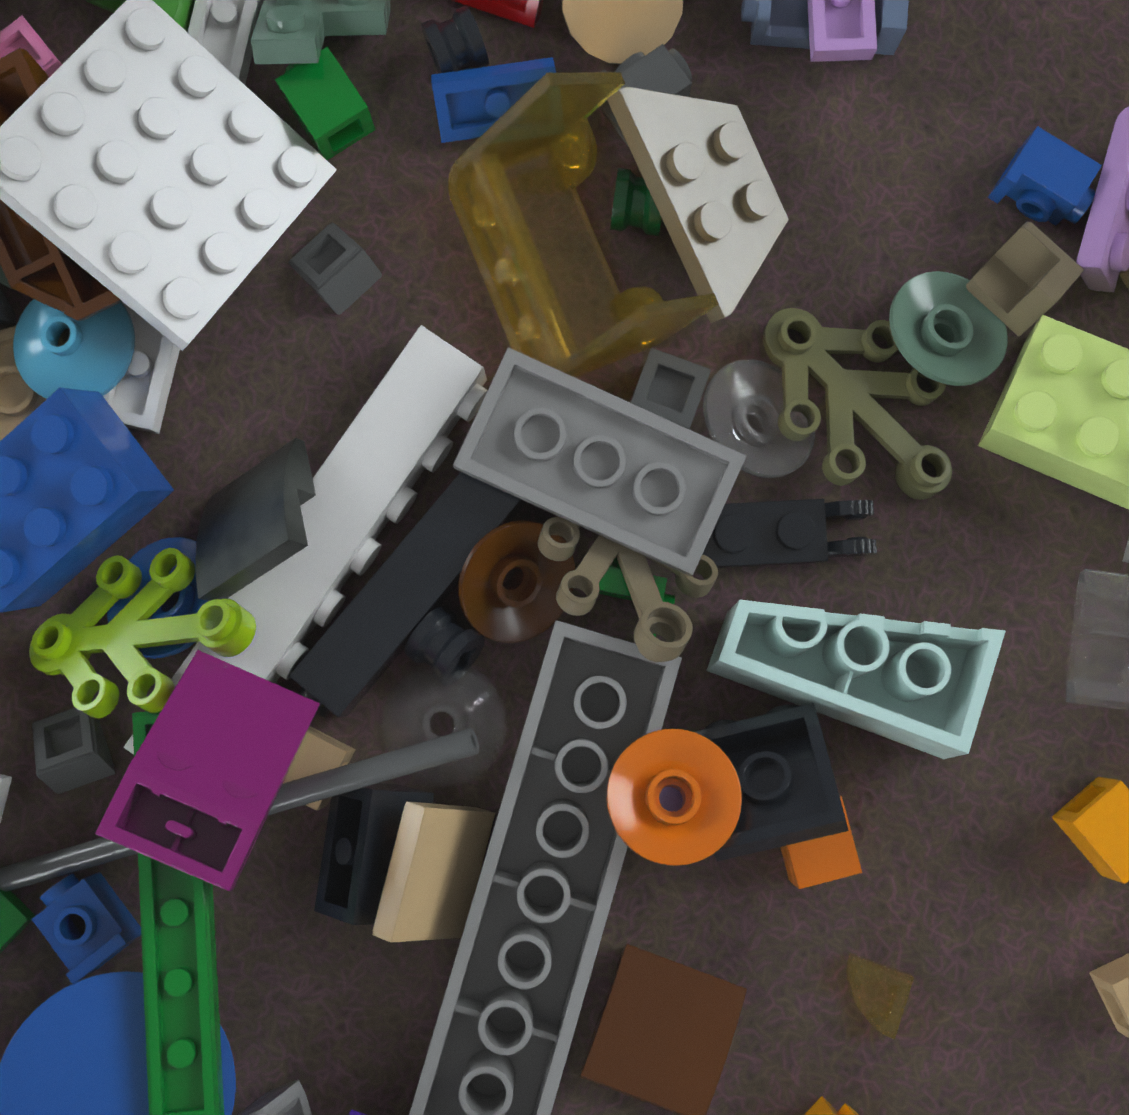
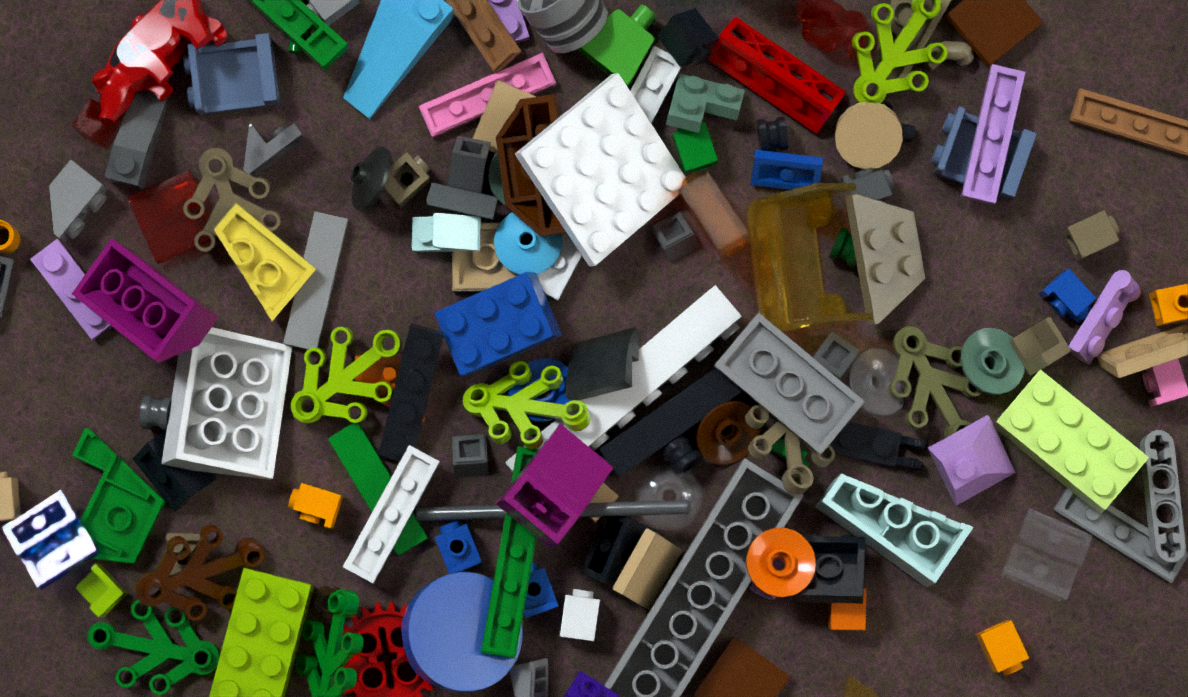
camera: 10 degrees right, 0 degrees up
(267, 963) = (545, 599): none -> blue brick
(337, 988) = (580, 615): none -> white brick
(391, 209) = (713, 216): none -> clear orange slope
(960, 511) = (971, 460): none -> lavender slope
(1054, 66) = (1091, 235): none -> dark tan brick

